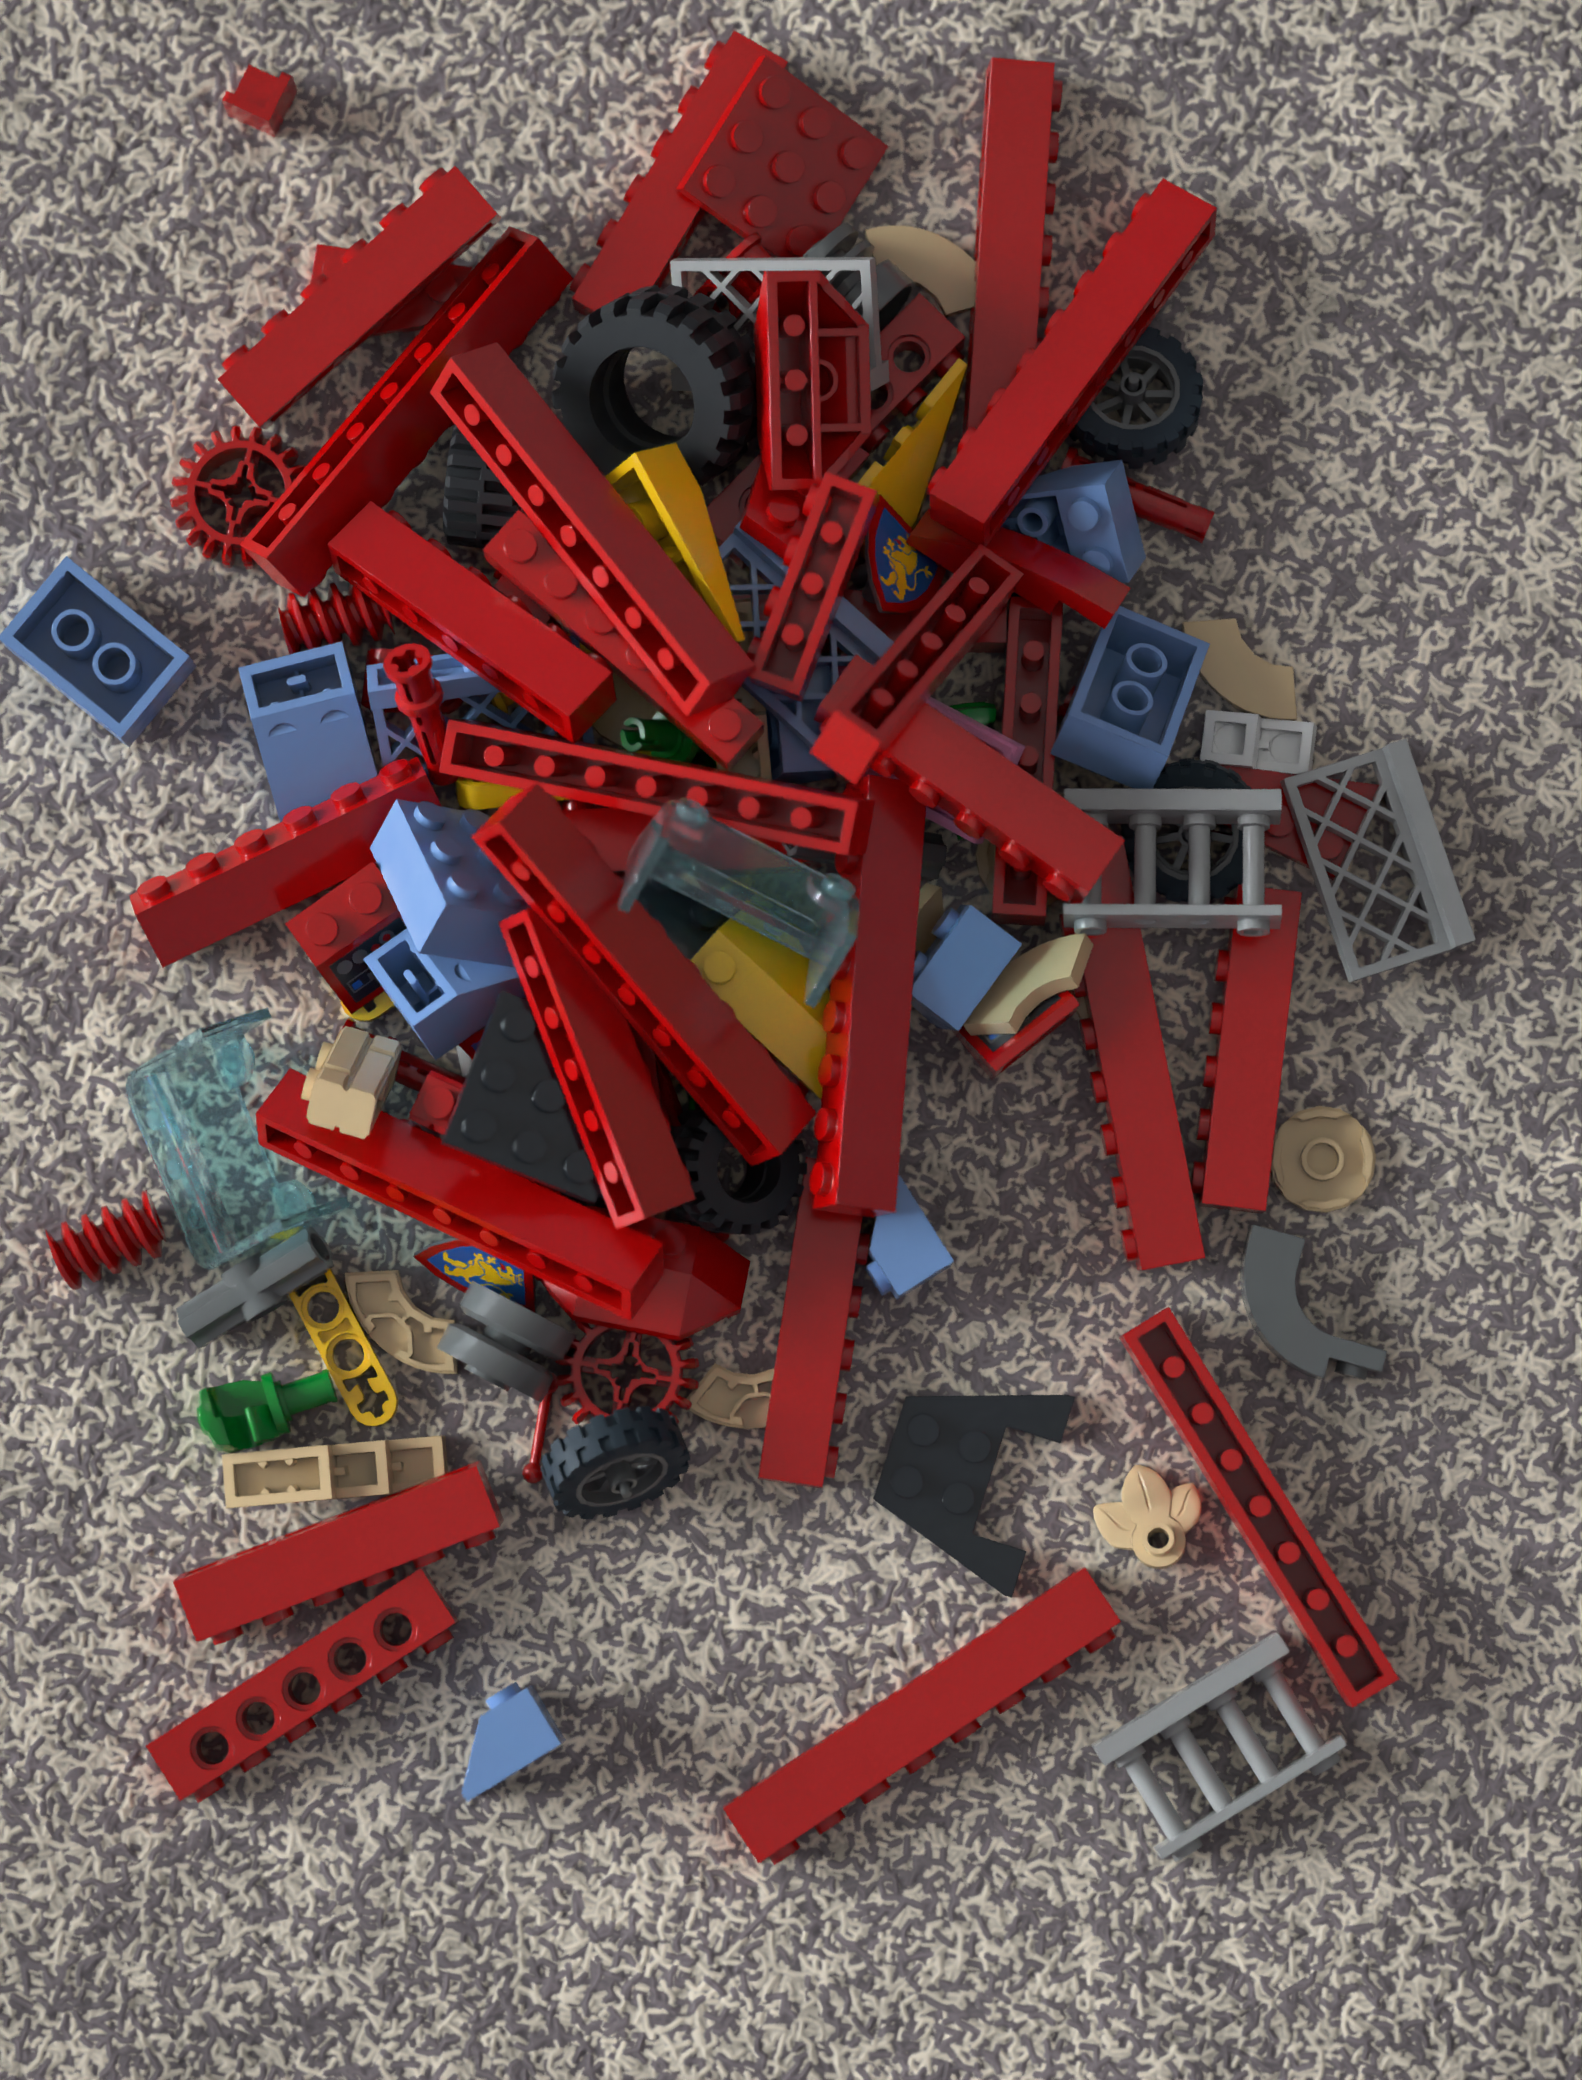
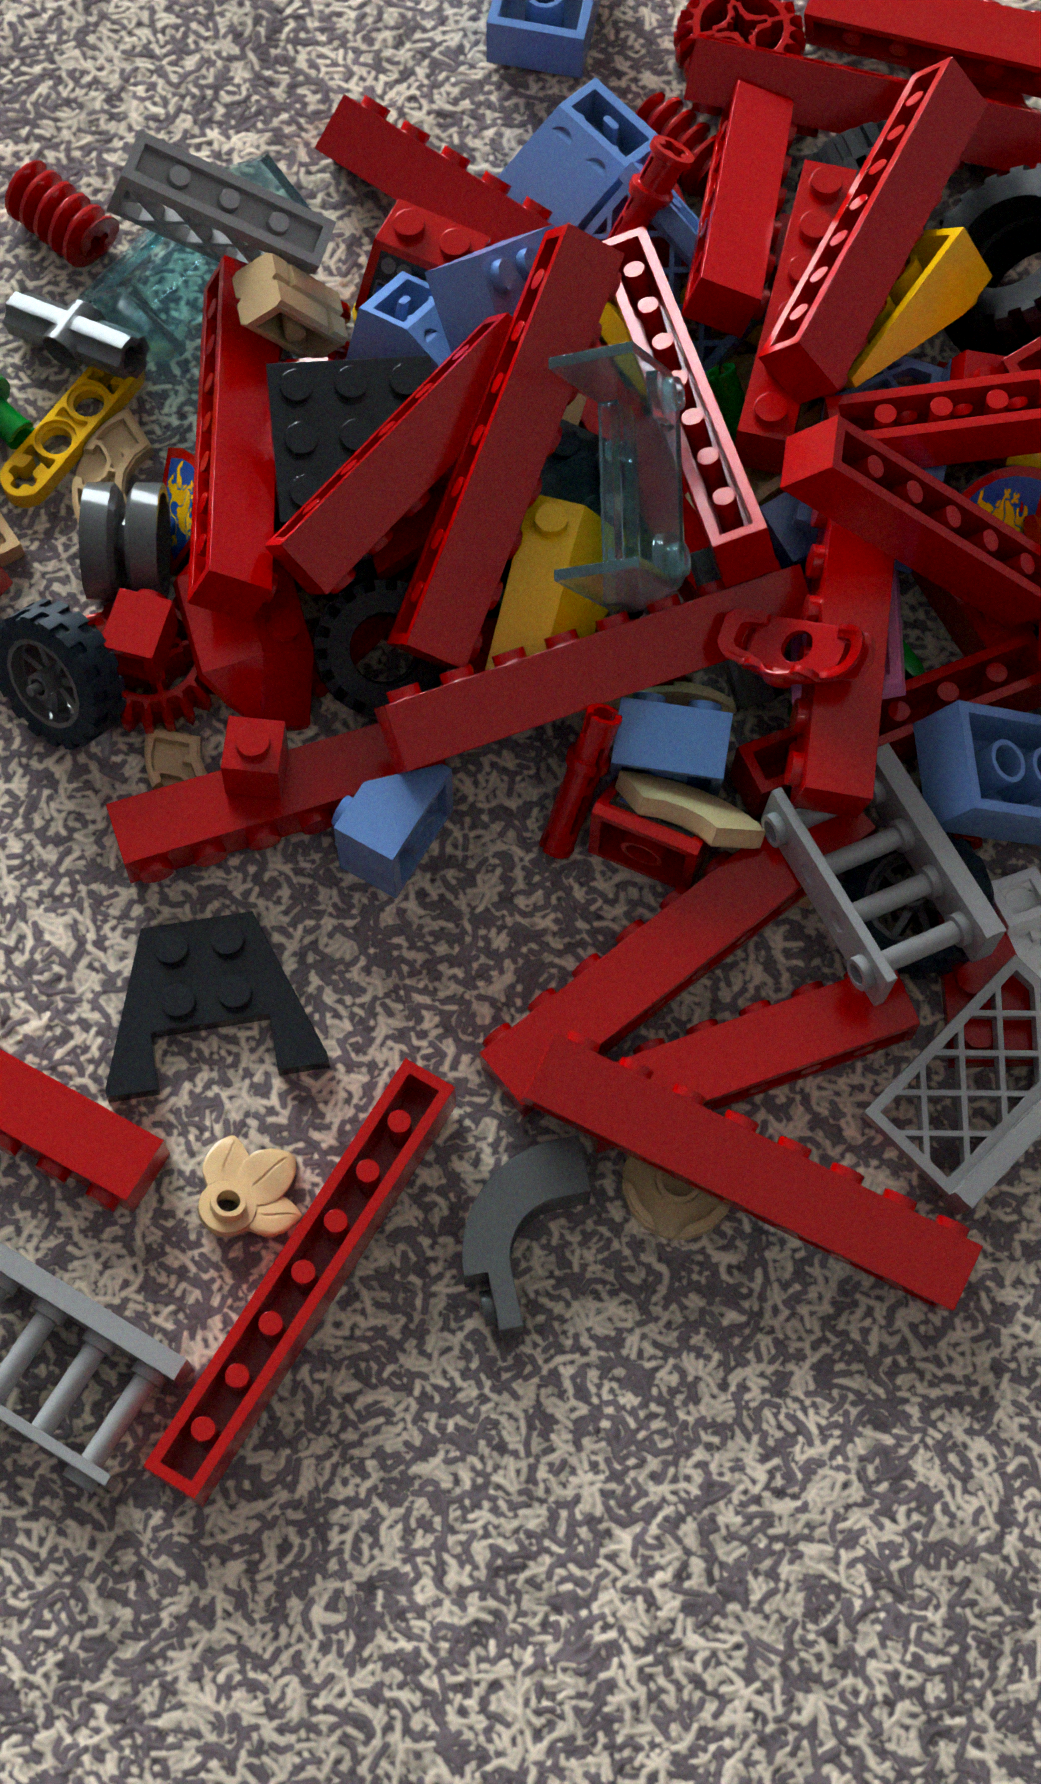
camera: 60 degrees right, 15 degrees down
(237, 1097) = (212, 197): none -> light grey fence
(614, 1371) = (141, 632): none -> red brick
(792, 1329) = (254, 757): none -> red brick
(933, 855) = (760, 640): none -> red piece
(945, 1053) = (586, 763): none -> red pin
(1356, 1104) = (752, 1172): none -> red brick

